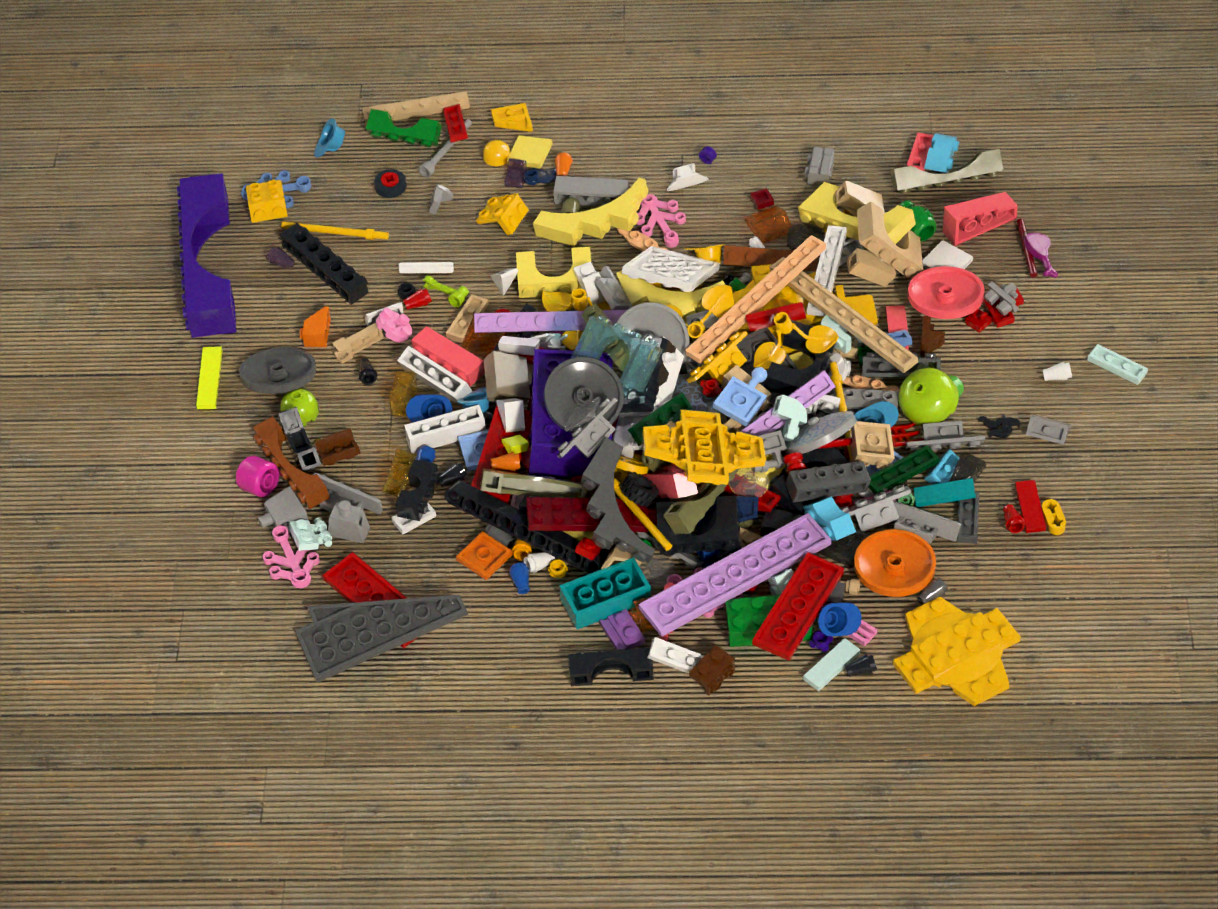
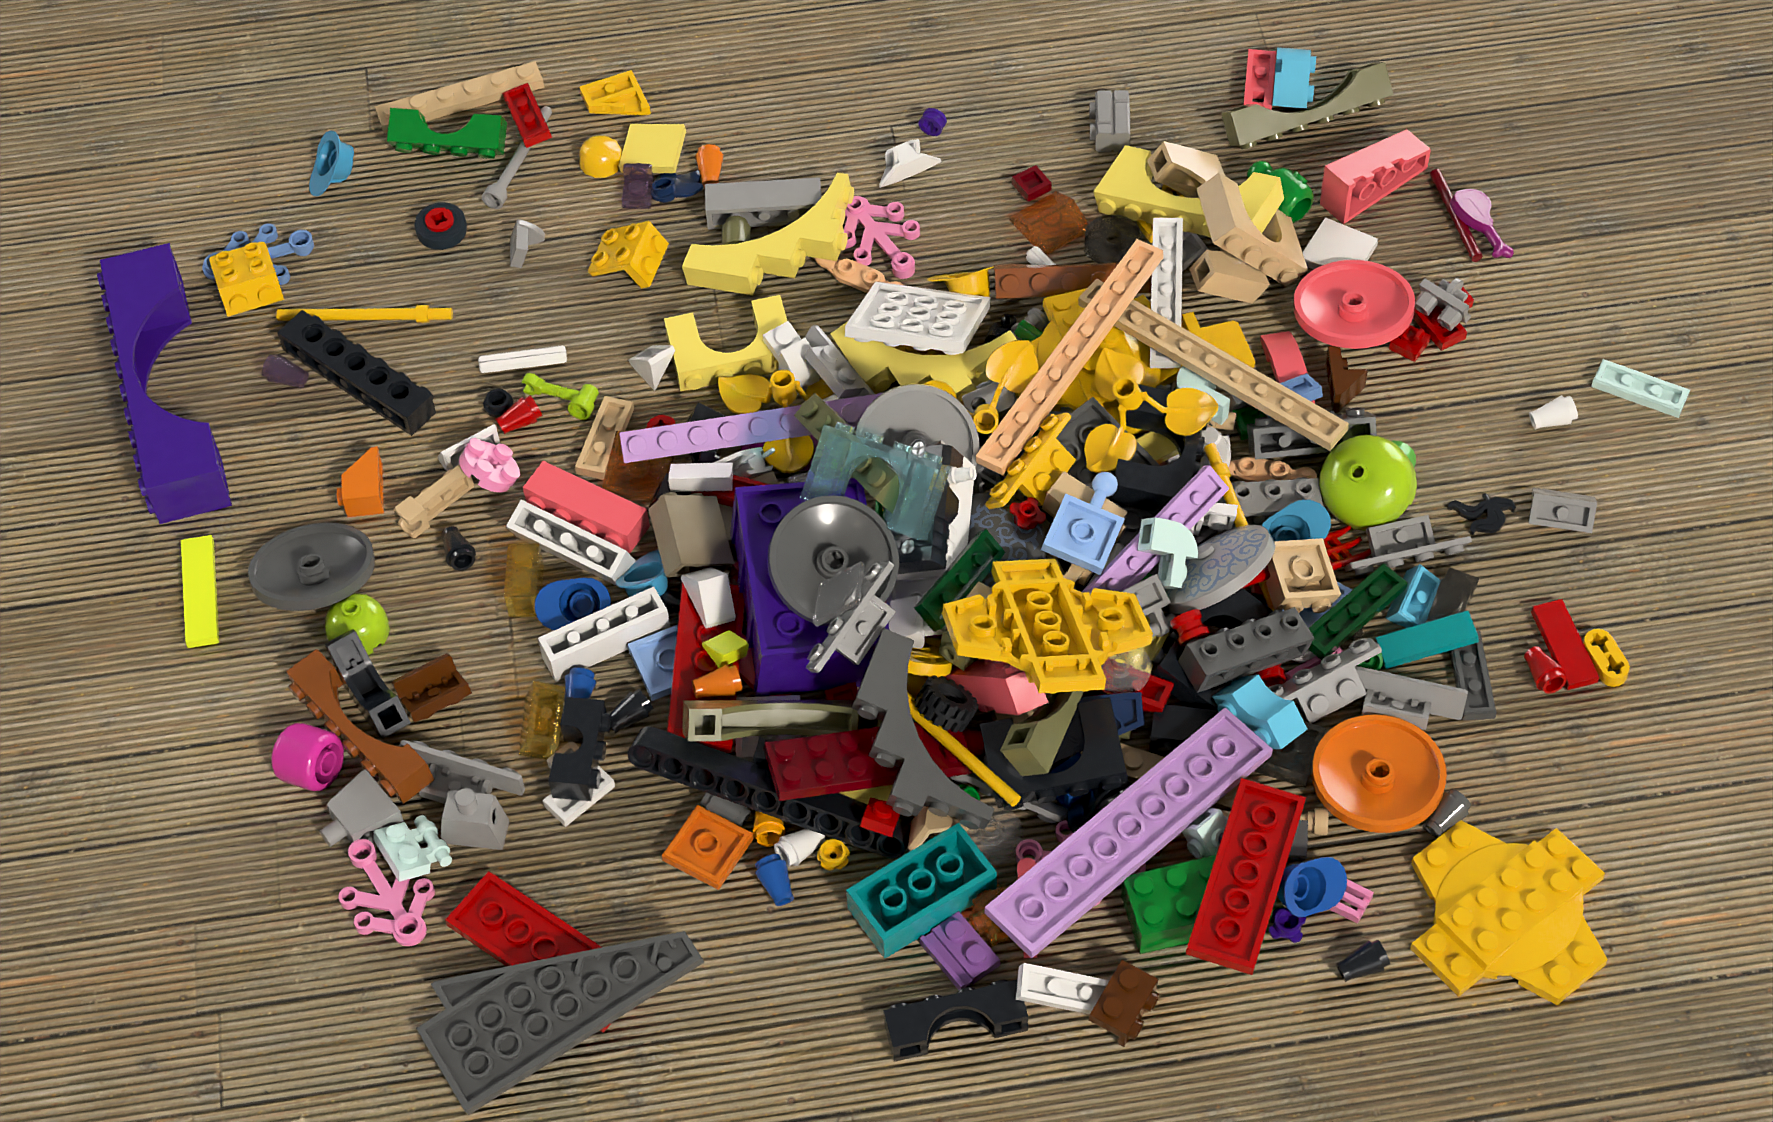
camera: 10 degrees left, 5 degrees up
(766, 318) = (1101, 383): red tile -> none
(831, 664) = (1313, 964): light aqua tile -> none

